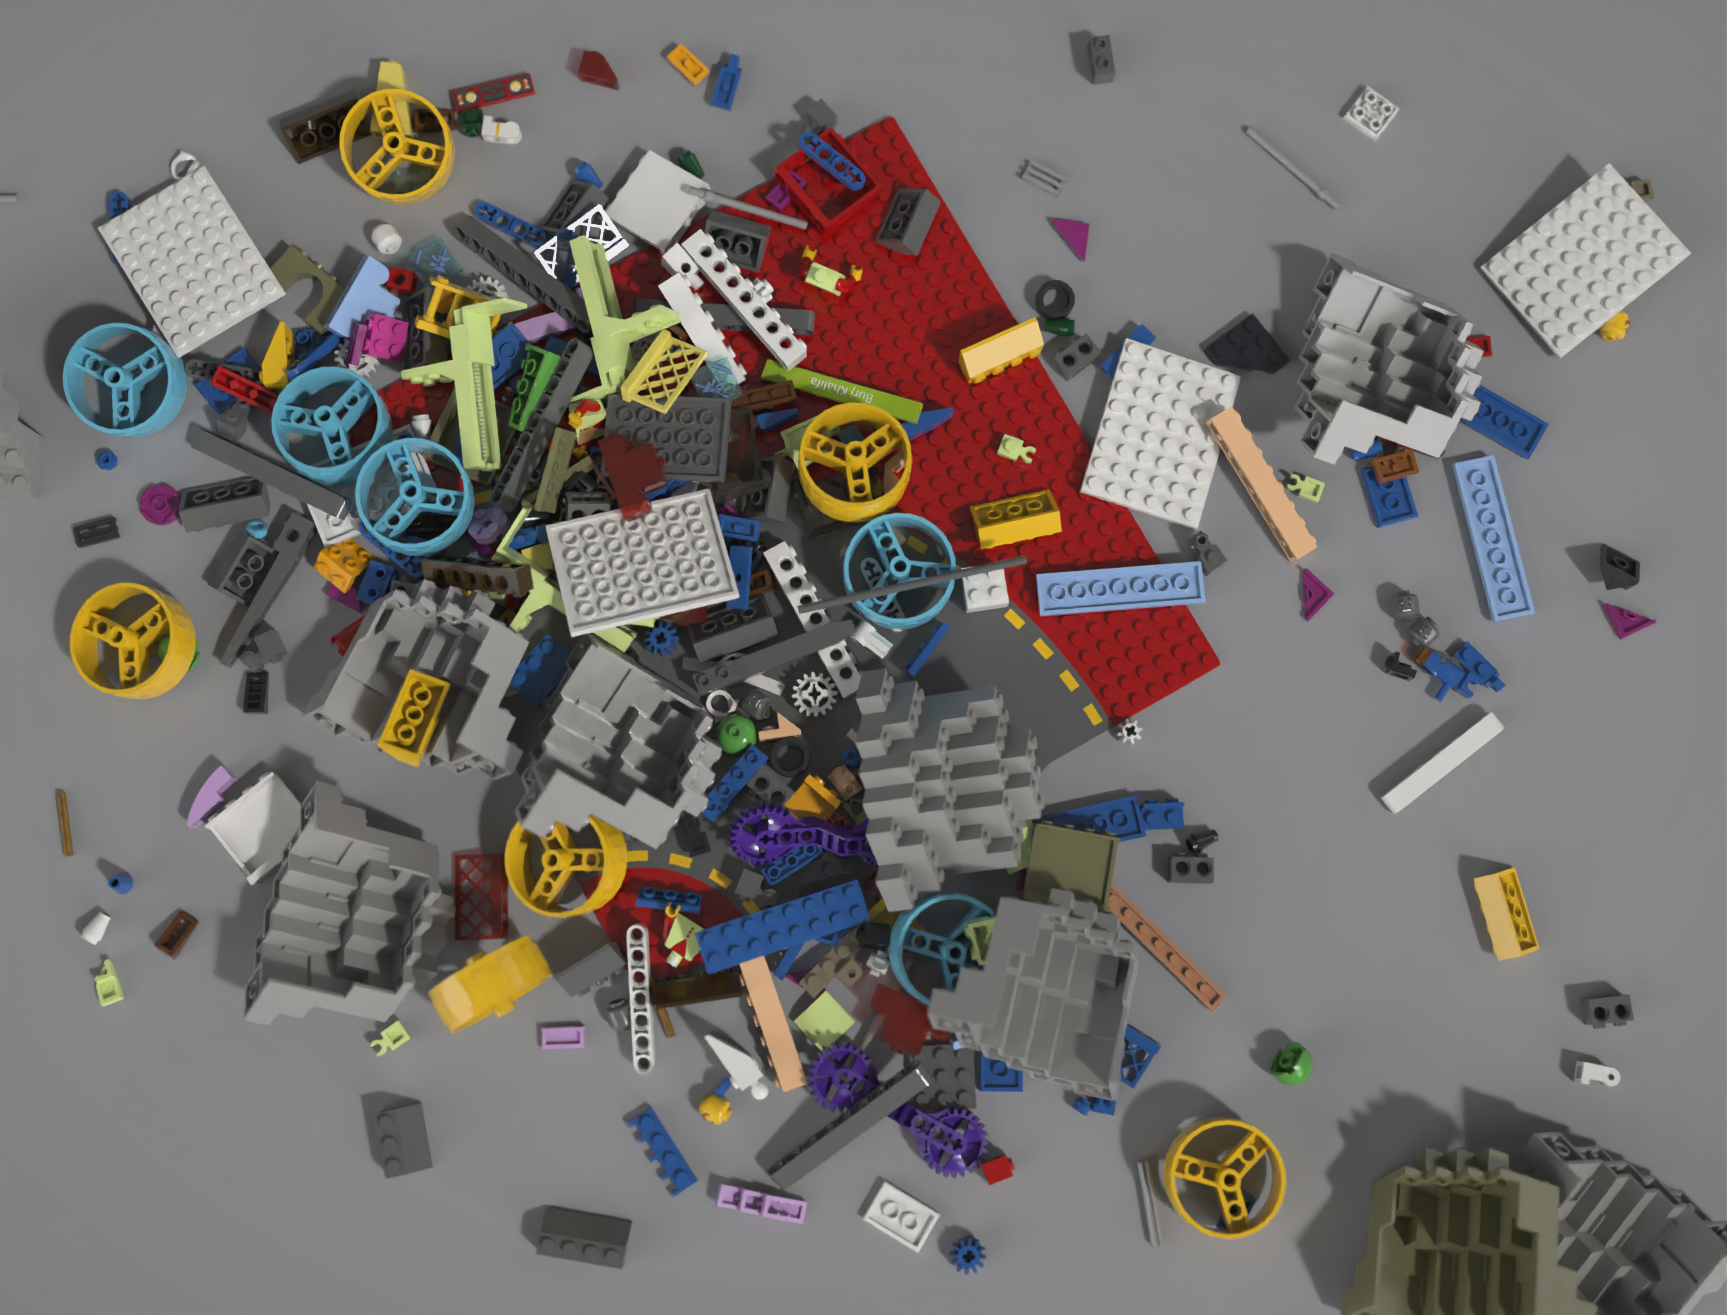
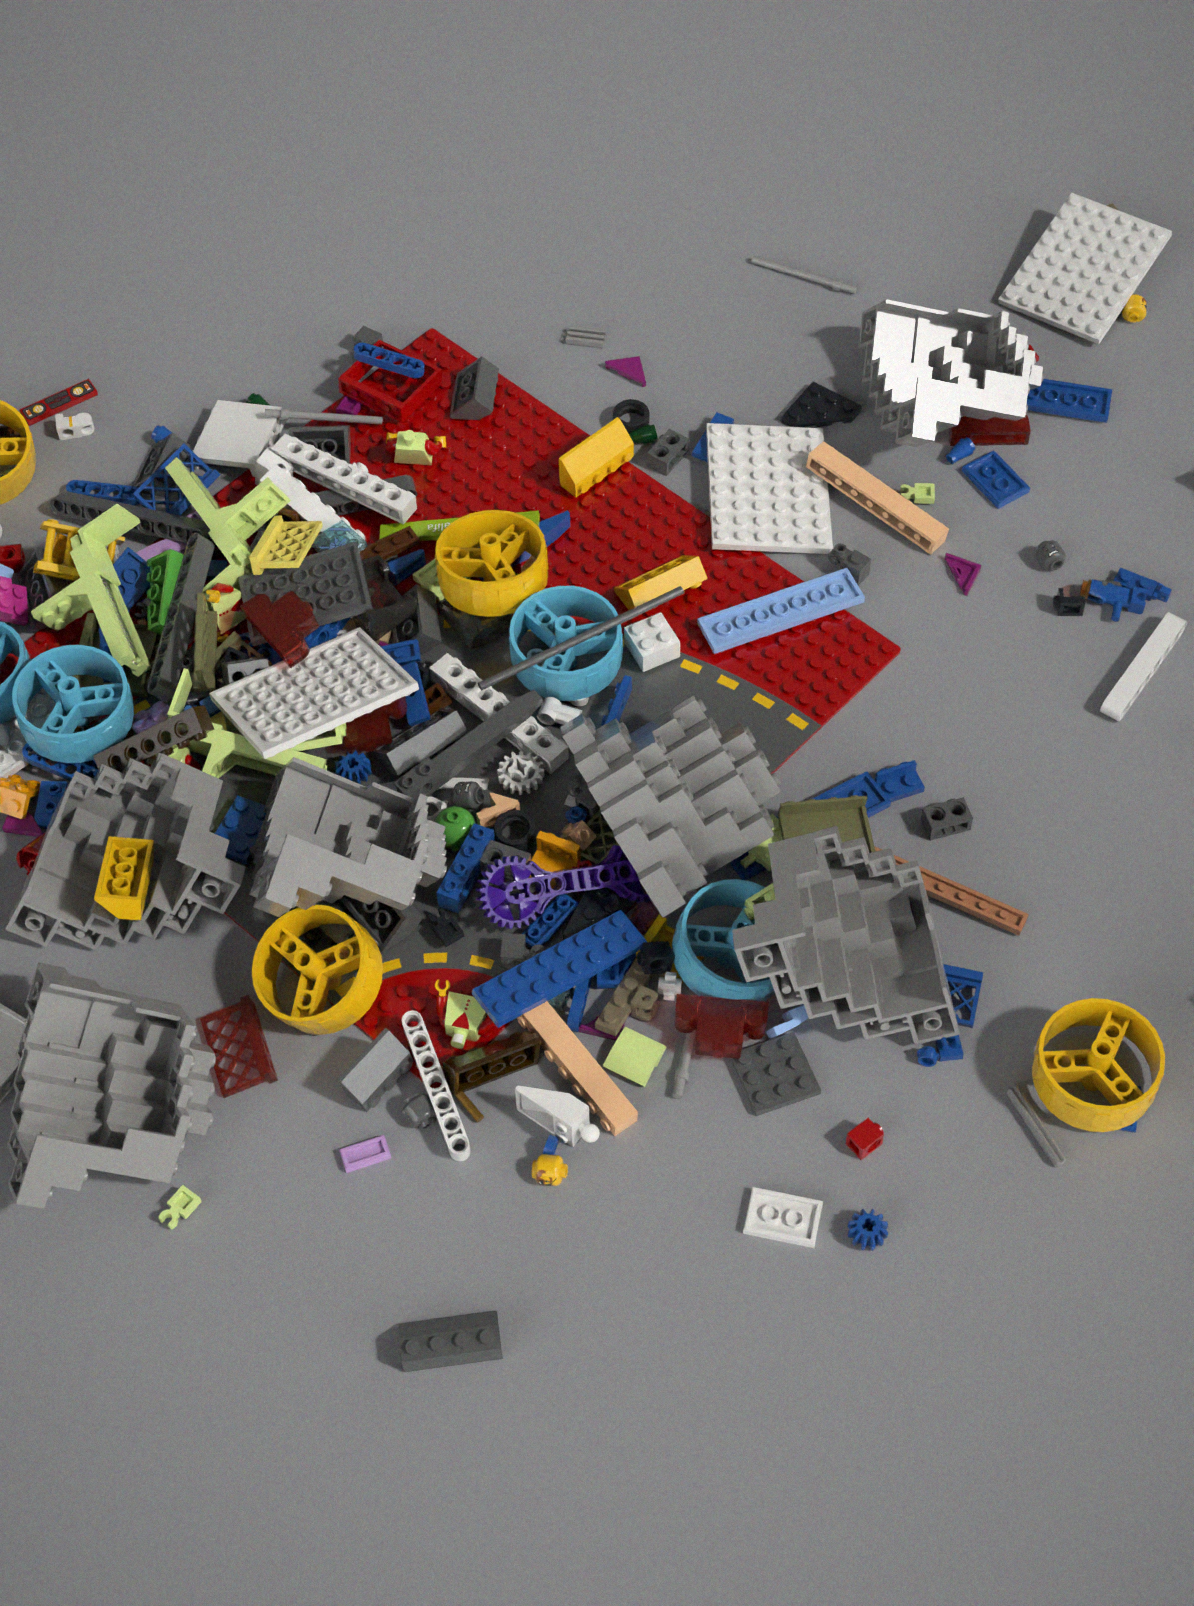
camera: 10 degrees left, 25 degrees down
(403, 1140) = (221, 1301): dark grey slope -> none
(434, 260) = (31, 536): clear light blue tile -> none
(472, 122) = (44, 427): dark green bracket -> none
(490, 984) = (273, 1097): yellow wheel -> none
(597, 71) = (152, 361): clear red slope -> none
(660, 899) = (414, 990): blue tile -> none
(664, 1150) = (509, 1229): blue hinge -> none
(688, 64) = (233, 336): light orange plate -> none
(727, 84) = (273, 341): blue hinge -> none
(761, 1203) = (630, 1248): lavender slope -> none
(850, 1124) = (695, 1134): dark grey beam -> none
(904, 1114) = (740, 1110): dark purple beam -> none
(999, 1078) = (832, 1050): blue tile -> none
(1012, 448) = (636, 533): yellowish green plate -> none
(1101, 59) = (602, 241): dark grey brick -> none
(1123, 732) = (838, 723): white gear -> none
(1199, 841) = (945, 791): black cone -> none
(1292, 1065) = (1123, 954): bright green cylinder -> none
(1371, 113) = (853, 222): white tile -> none
(1394, 466) = (991, 453): dark orange bracket -> none
(1424, 631) = (1077, 569): dark grey head -> none
(1493, 538) = (1106, 486): light blue plate -> none

